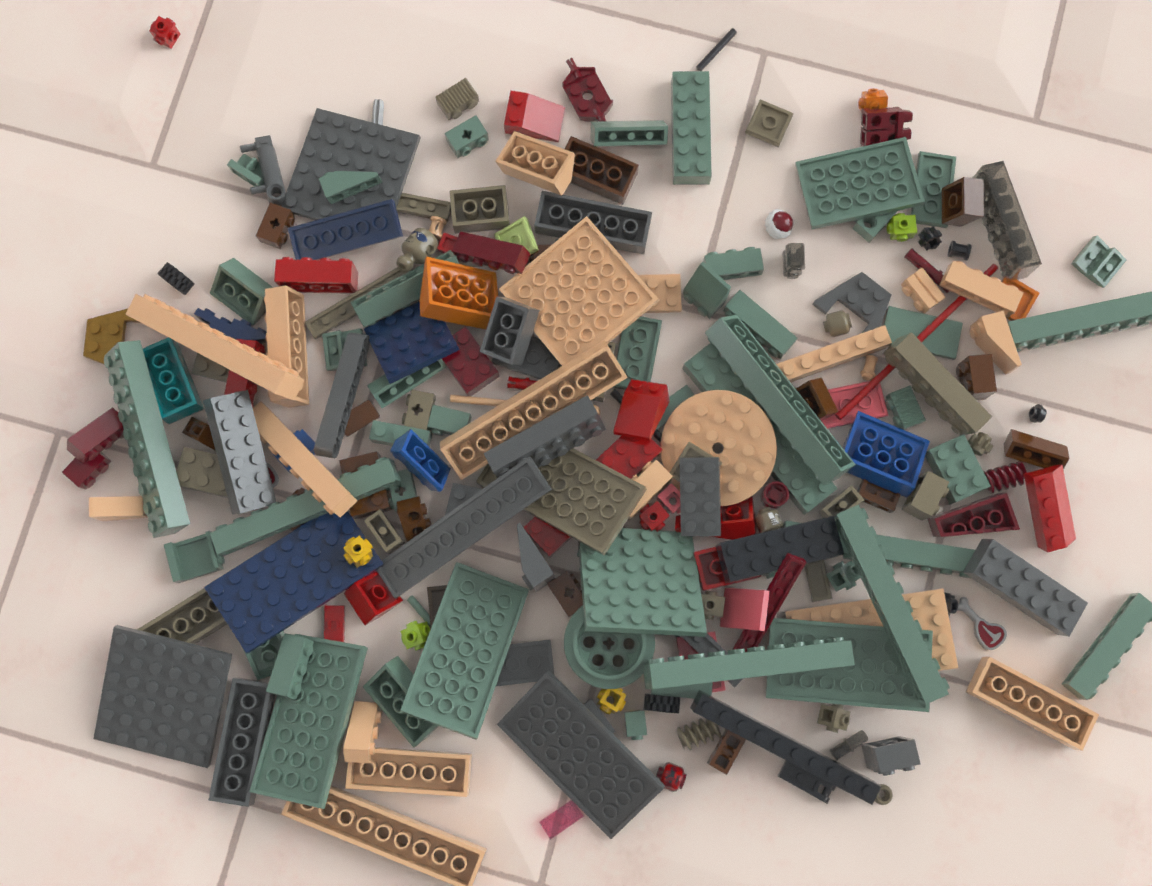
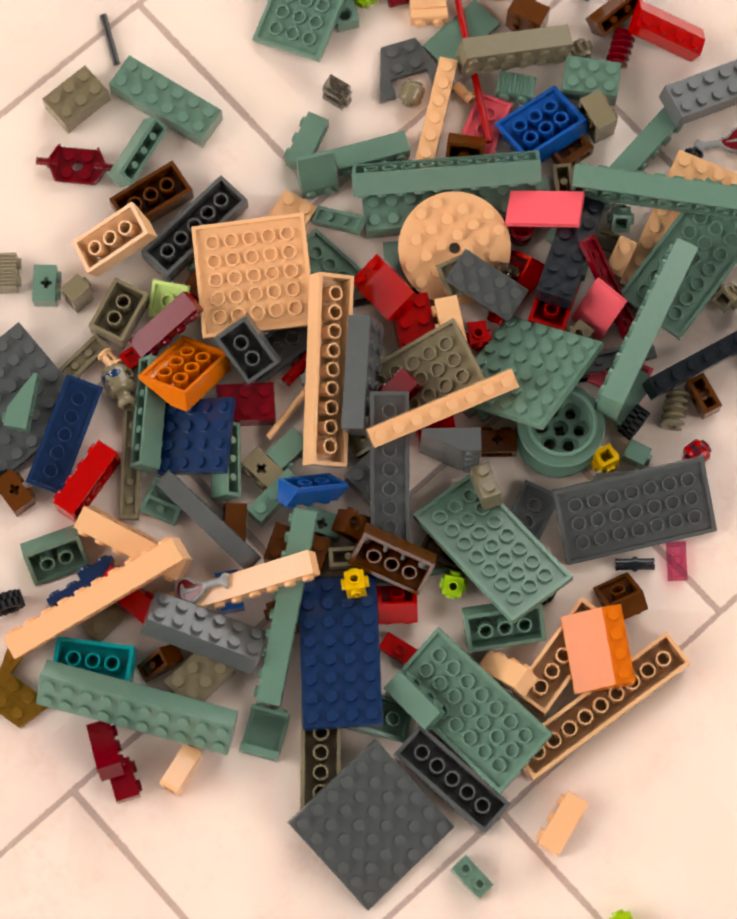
camera: 60 degrees left, 5 degrees down
(170, 811) = (471, 877): none -> sand green brick
(263, 860) = (561, 823): none -> light nougat brick
(269, 419) = (193, 591): none -> light grey piece
(402, 570) = (392, 559): none -> reddish brown slope
(427, 801) = (598, 649): none -> slope
(474, 164) = (77, 292): none -> dark tan brick
(495, 789) = (622, 591): none -> reddish brown slope
(518, 609) = (485, 485): none -> dark tan brick
(533, 116) = (65, 221): slope -> none
(535, 783) = (635, 564): none -> black pin
(552, 528) = (442, 408): none -> light nougat brick
(560, 480) = (402, 381): none -> dark red brick
(644, 56) = (76, 99): none -> dark tan brick
(670, 492) = (472, 306): coral brick -> none
(679, 335) = (339, 220): none -> sand green tile
(727, 506) = (507, 269): none -> clear smoke plate
(768, 520) = (538, 248): dark tan head -> none
(769, 123) = (204, 38): dark tan plate -> none
(779, 224) = (296, 85): hair -> none
(802, 504) = (545, 208): none -> coral tile
(808, 598) = (621, 255): none -> light nougat brick
(981, 516) = (639, 87): dark red wedge -> none

